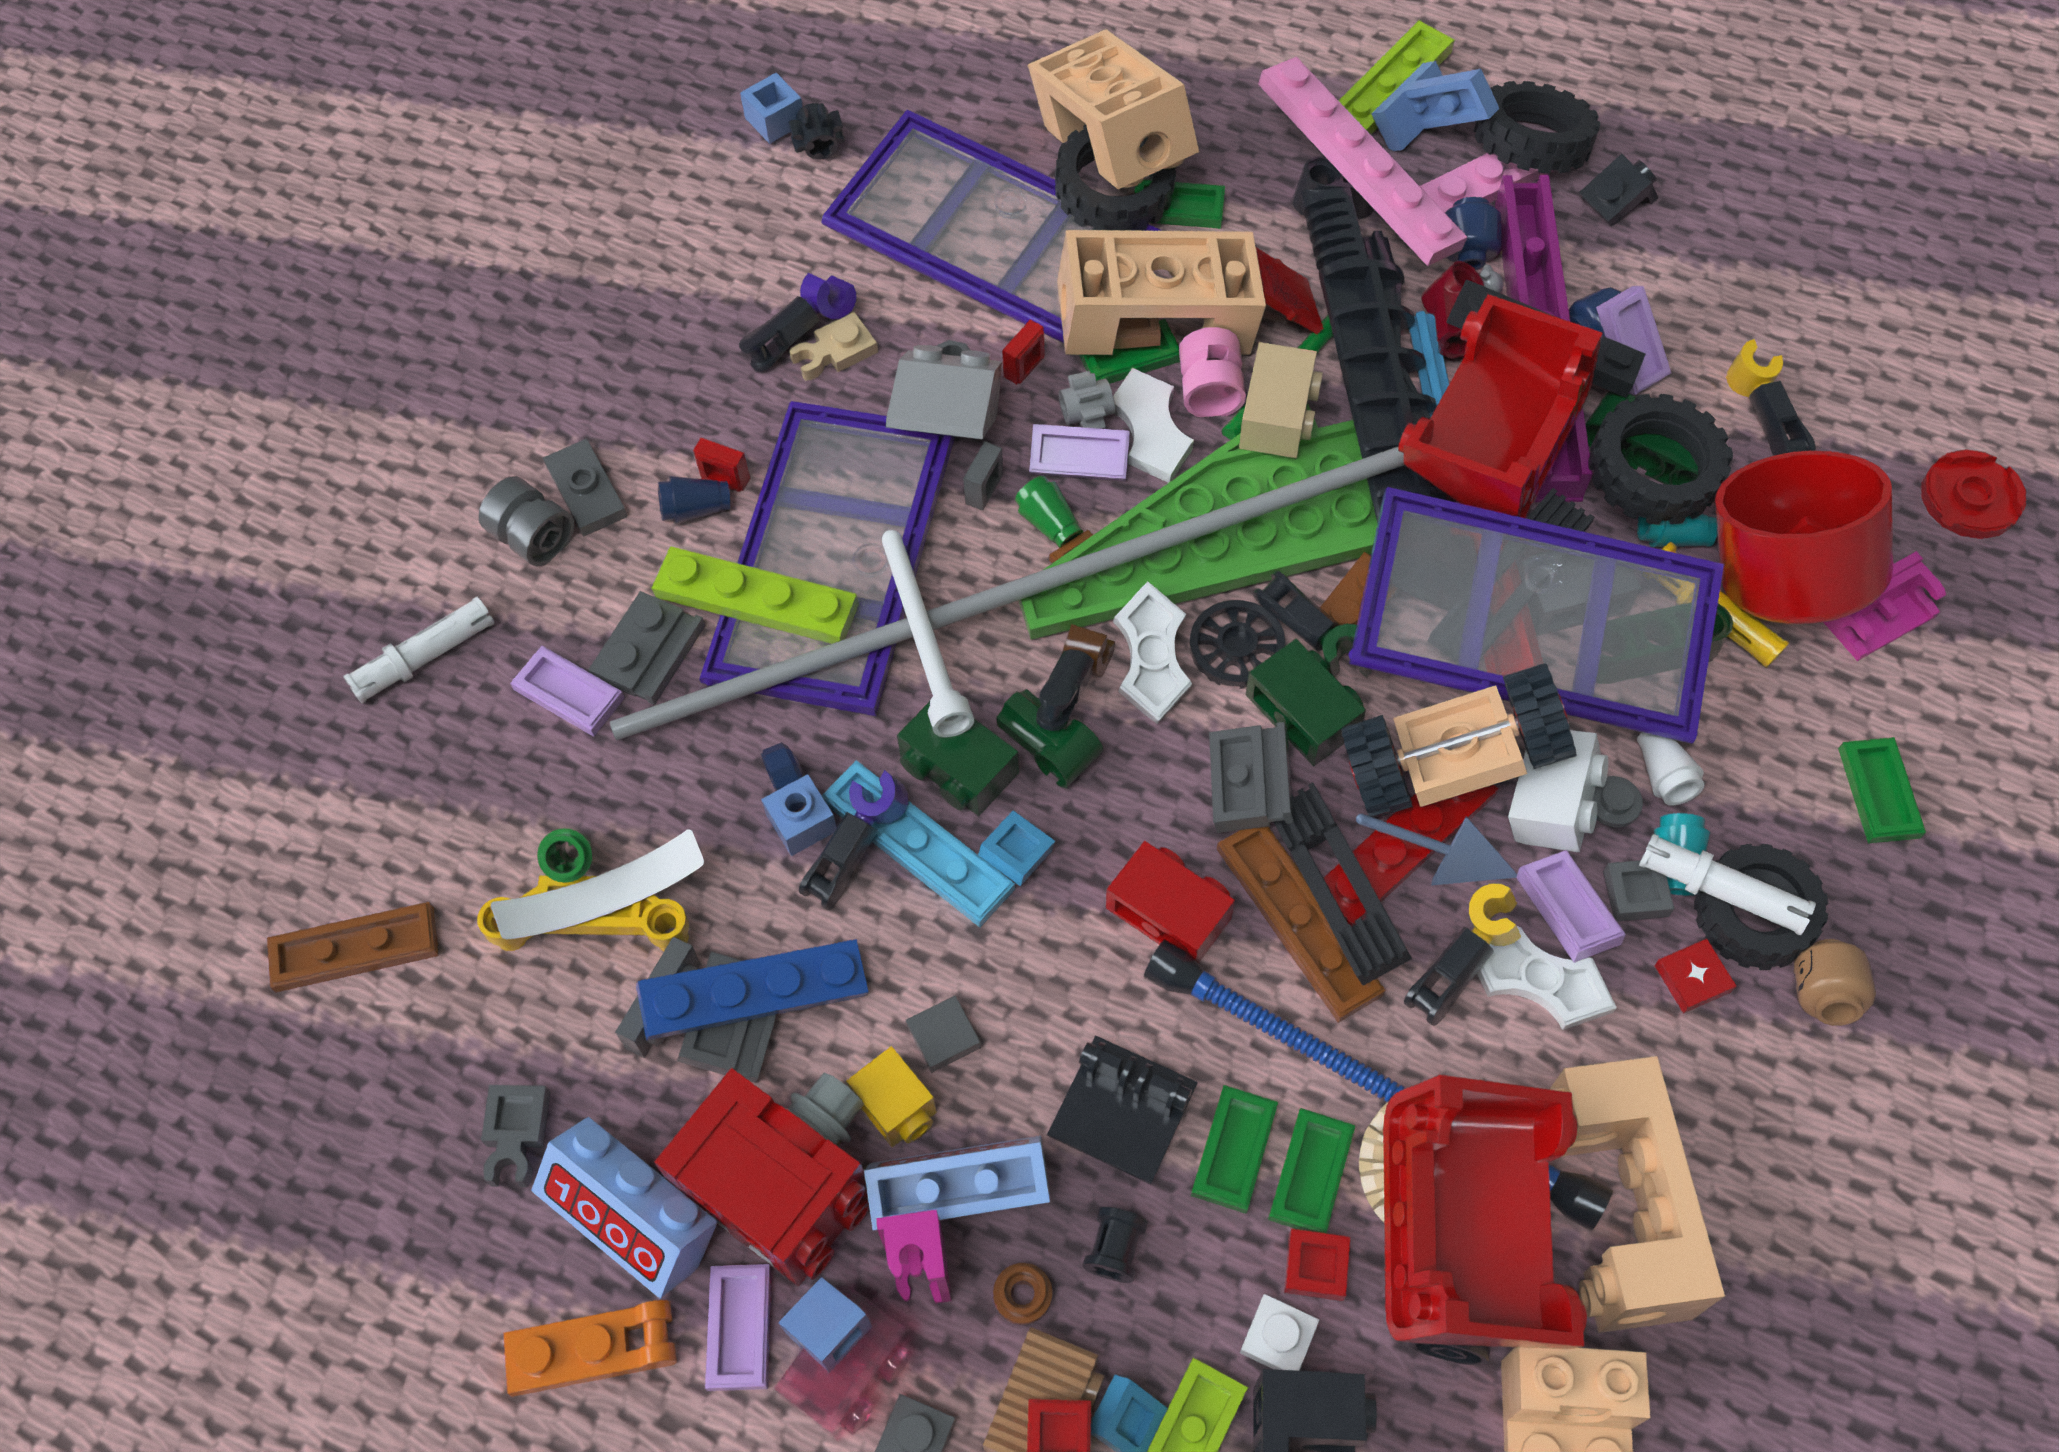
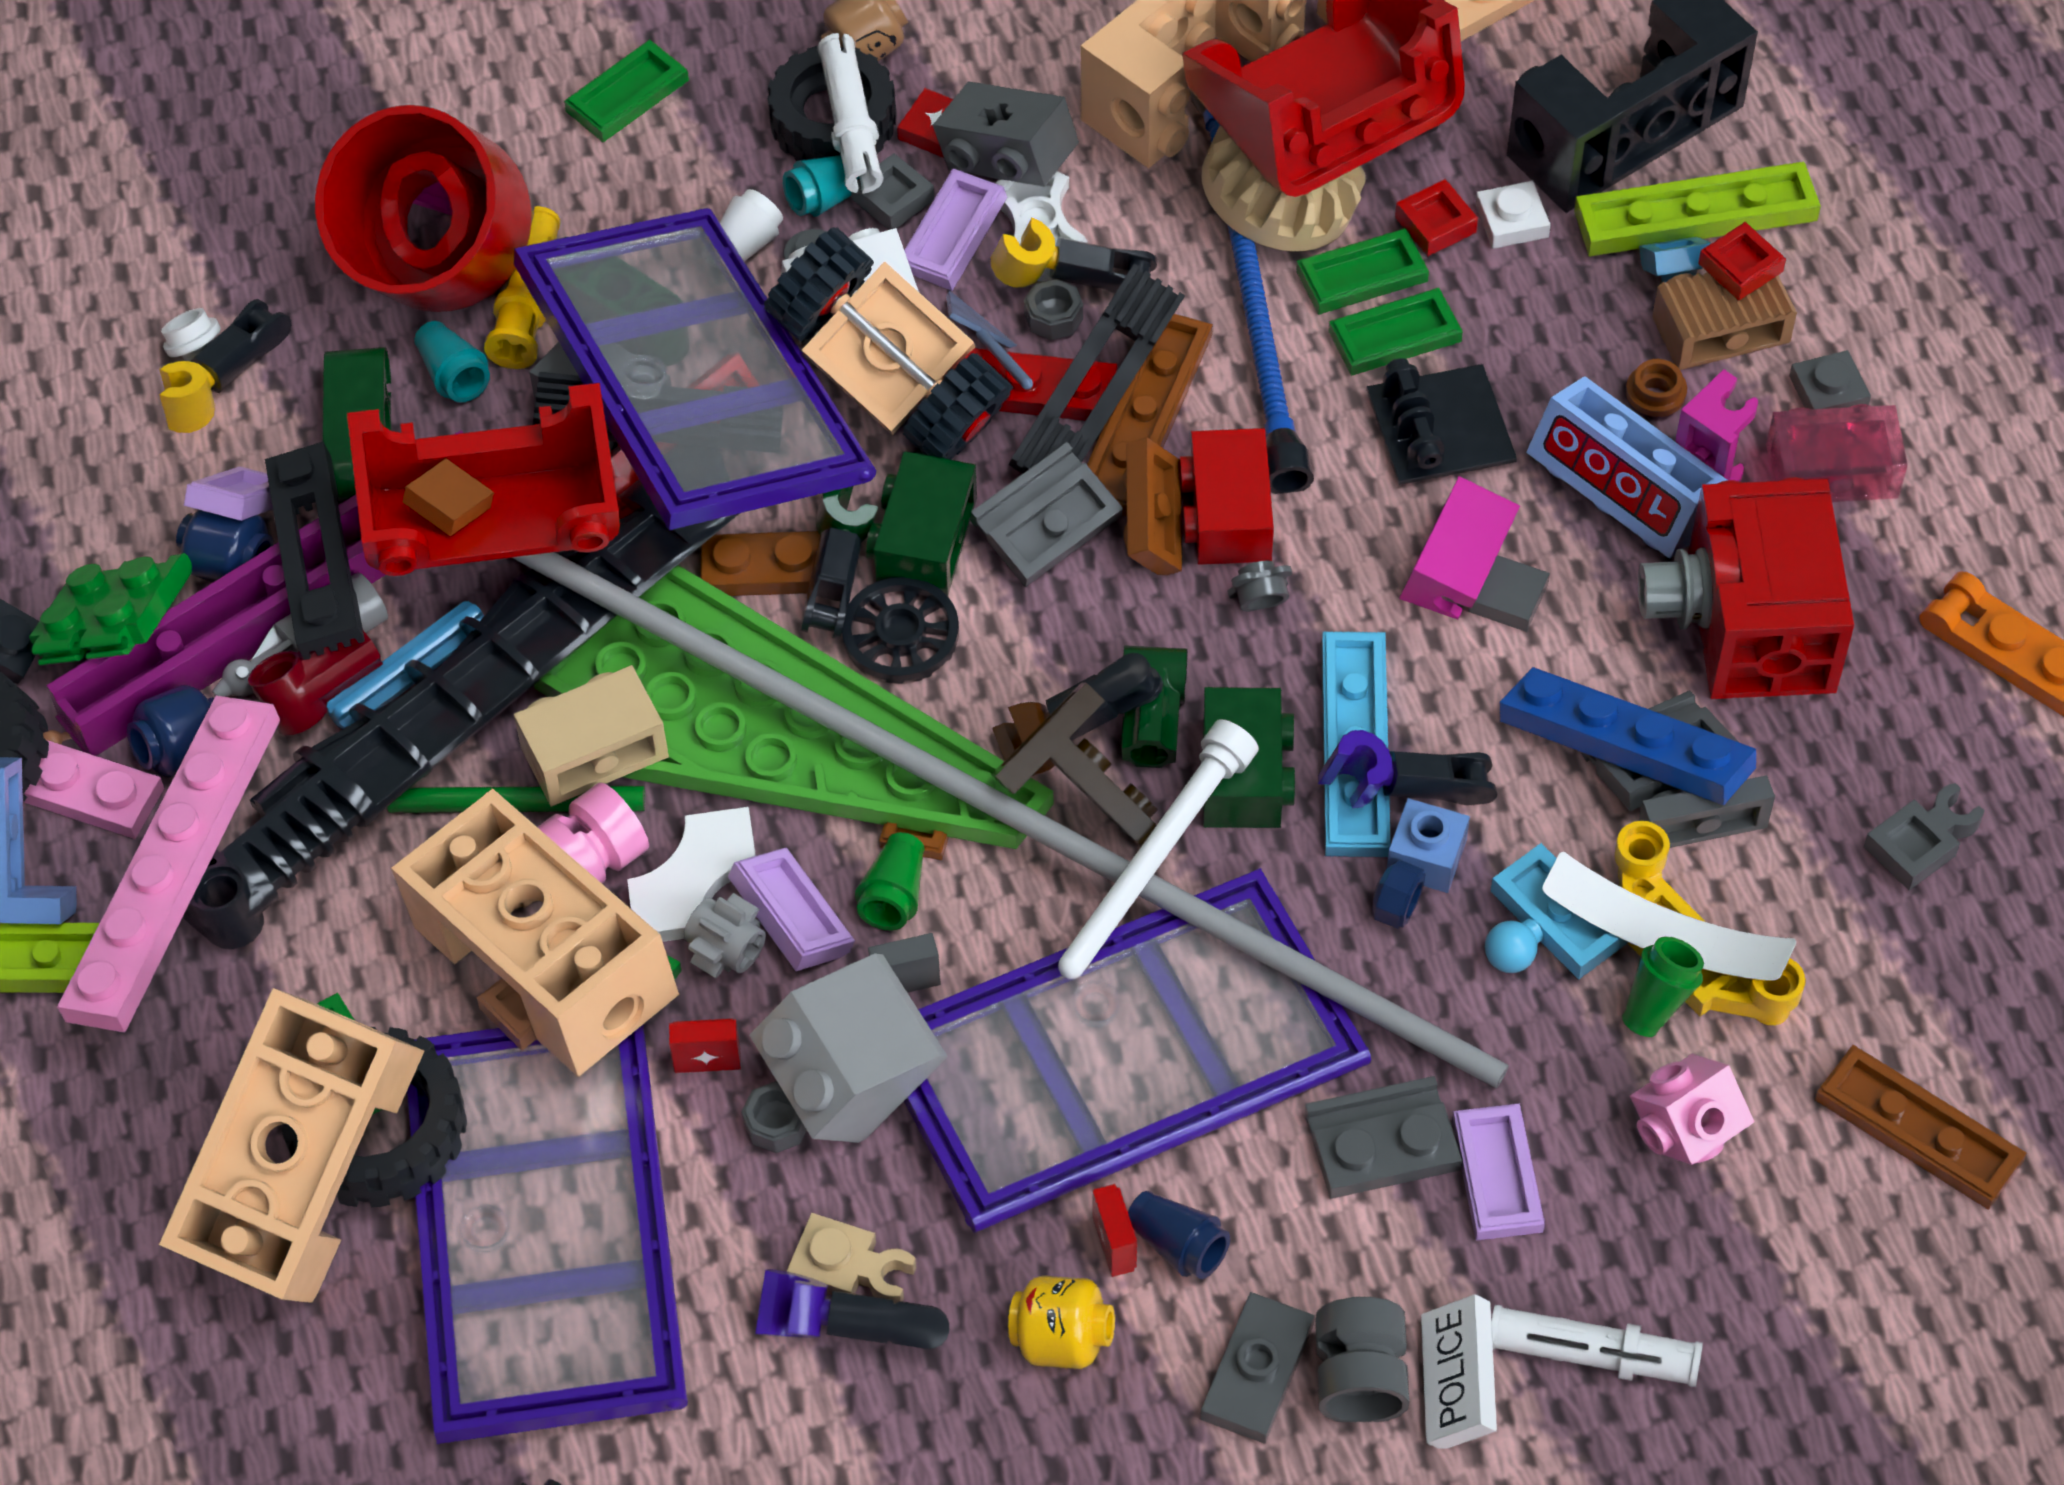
camera: 130 degrees left, 5 degrees down
(475, 568) = (1458, 1372): none -> white tile
(482, 804) = (1691, 1109): none -> bright pink brick
(623, 1206) = (1896, 686): light blue brick -> none
(696, 405) = (1060, 1322): none -> yellow head
(718, 845) = (1571, 939): none -> medium azure plate
(738, 1327) = (1890, 556): lavender tile -> none
(755, 595) = (1243, 1061): lime plate -> none
(825, 1324) = (1833, 448): medium blue slope -> none
(894, 1098) = (1604, 574): yellow brick -> none
(998, 1019) = (1460, 549): none -> dark pink hinge
(1015, 632) = (1080, 764): none -> dark brown bracket
(1016, 848) = (1289, 649): dark azure plate -> none
(1081, 868) = (1260, 585): none -> dark grey plate
(1115, 1244) = (1558, 348): black bush -> none
(1154, 674) = (965, 687): white tile -> none
(1198, 839) = (1153, 507): none -> dark orange plate
(1288, 292) = (421, 822): red piece -> none
(1438, 919) = (1053, 309): none -> dark grey tile
(1514, 396) = (448, 497): none -> dark orange tile
(1589, 234) = (108, 609): none -> green plate
(1630, 988) = (1006, 133): none -> dark grey brick
(1675, 421) = (404, 325): black tyre -> none
(1810, 399) = (189, 333): none -> white plate
(1968, 506) = (210, 188): red tile -> none

